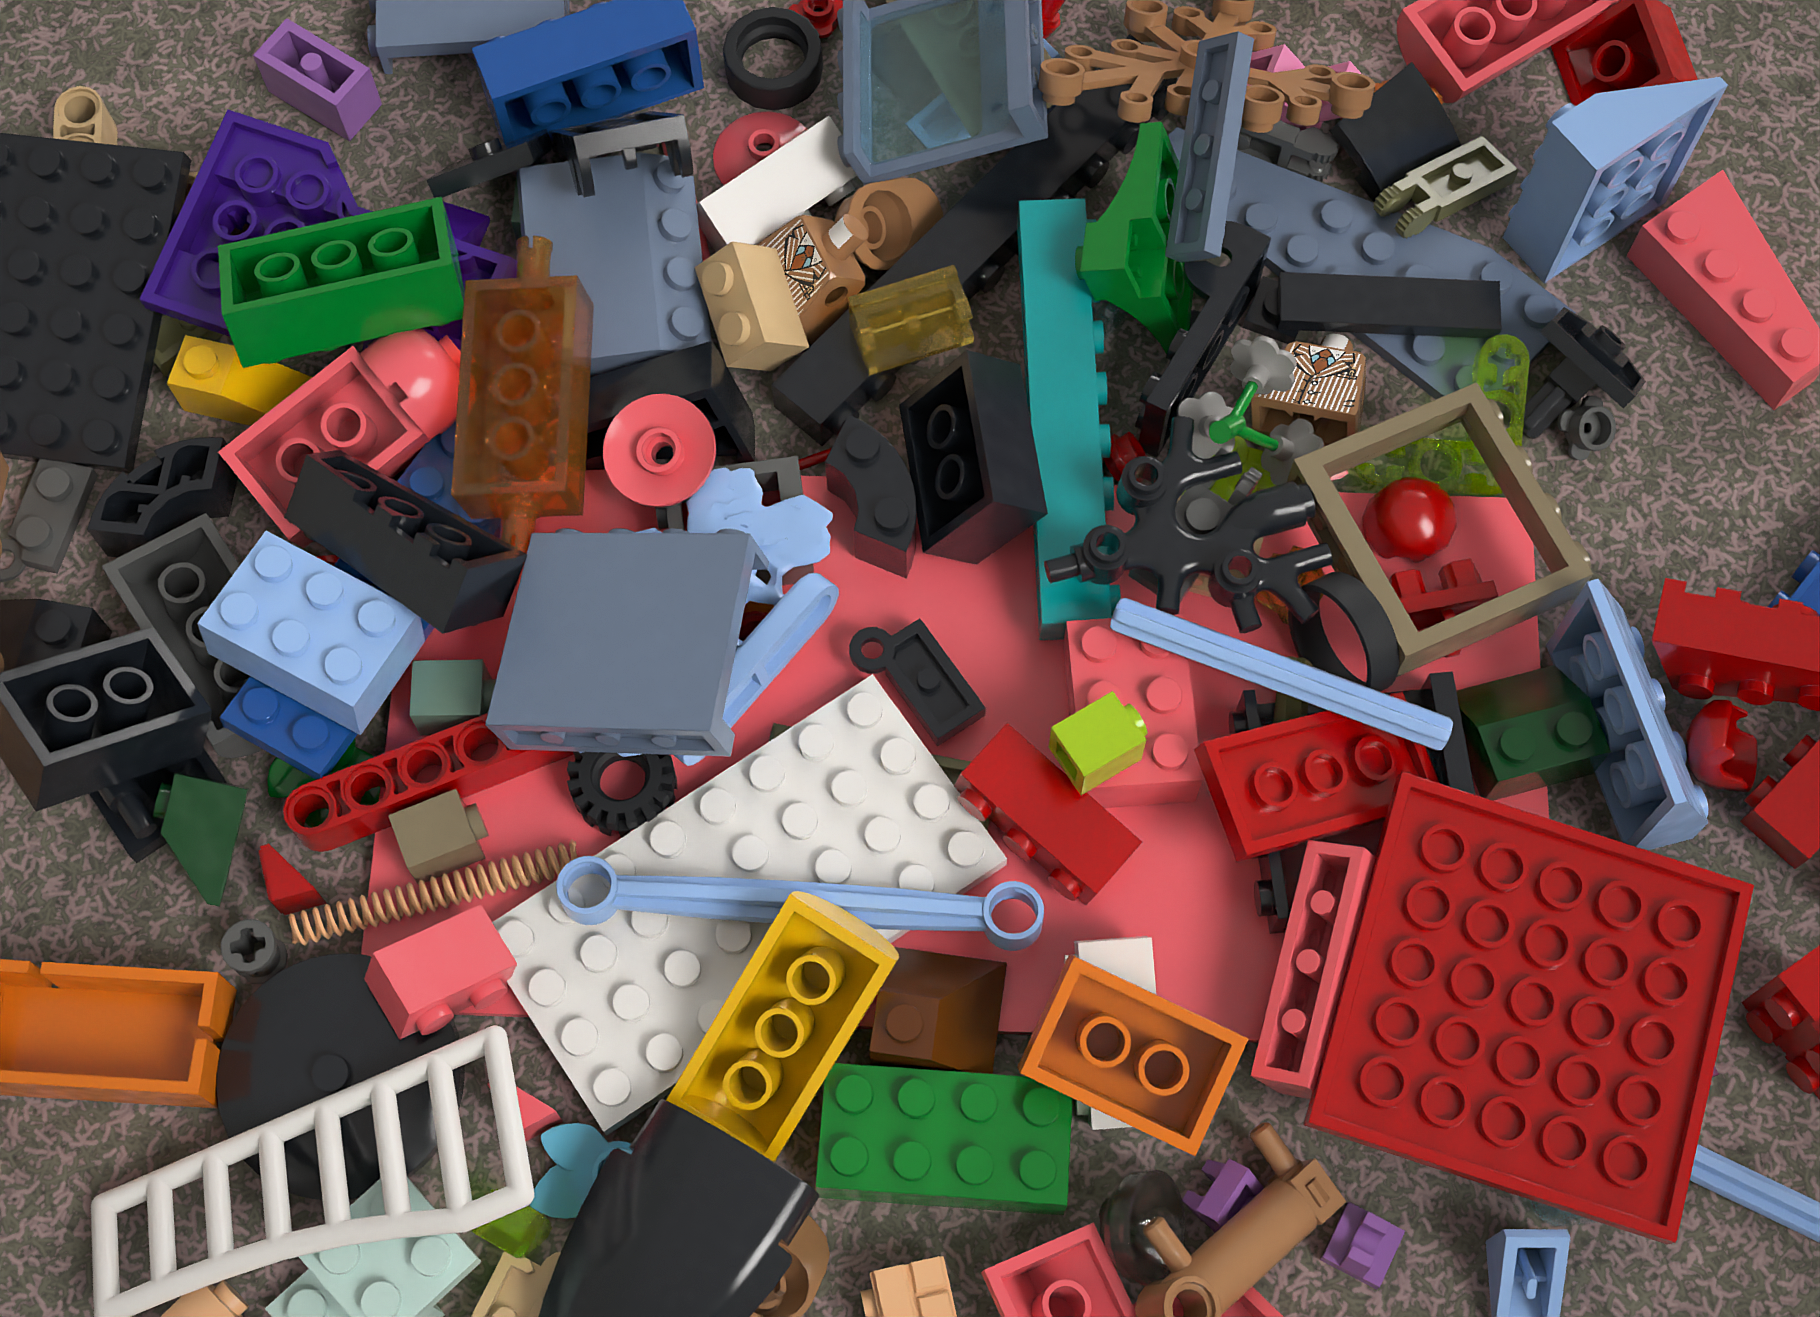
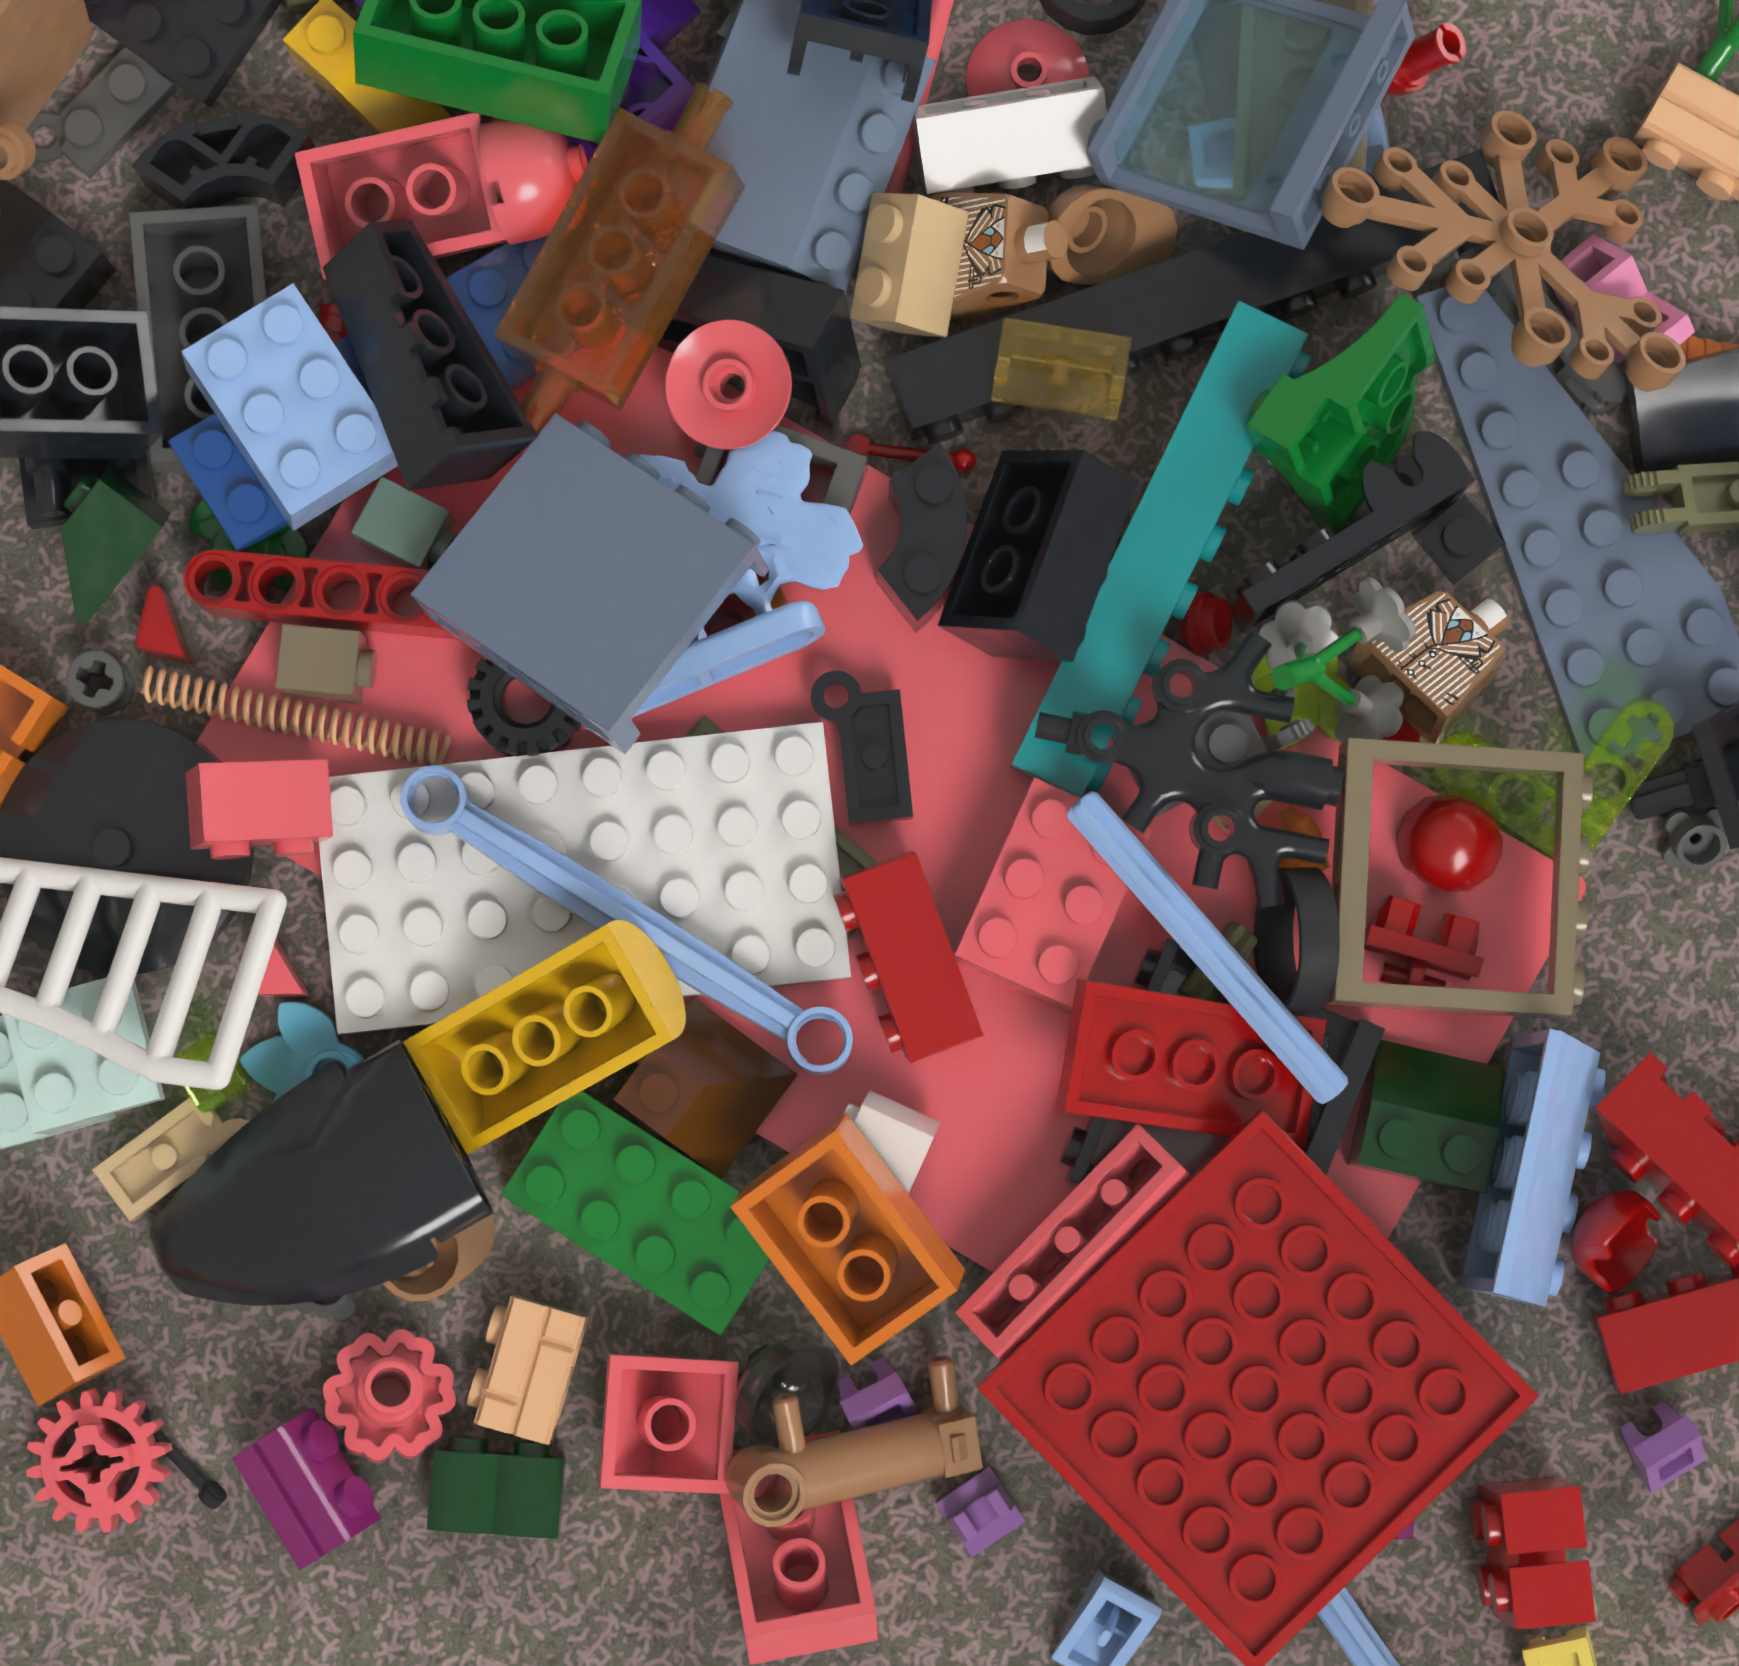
camera: 25 degrees right, 15 degrees up
(1098, 742) = (988, 925): lime brick -> none
(1209, 147) = (1458, 357): sand blue plate -> none
(1389, 305) = (1569, 602): black tile -> none

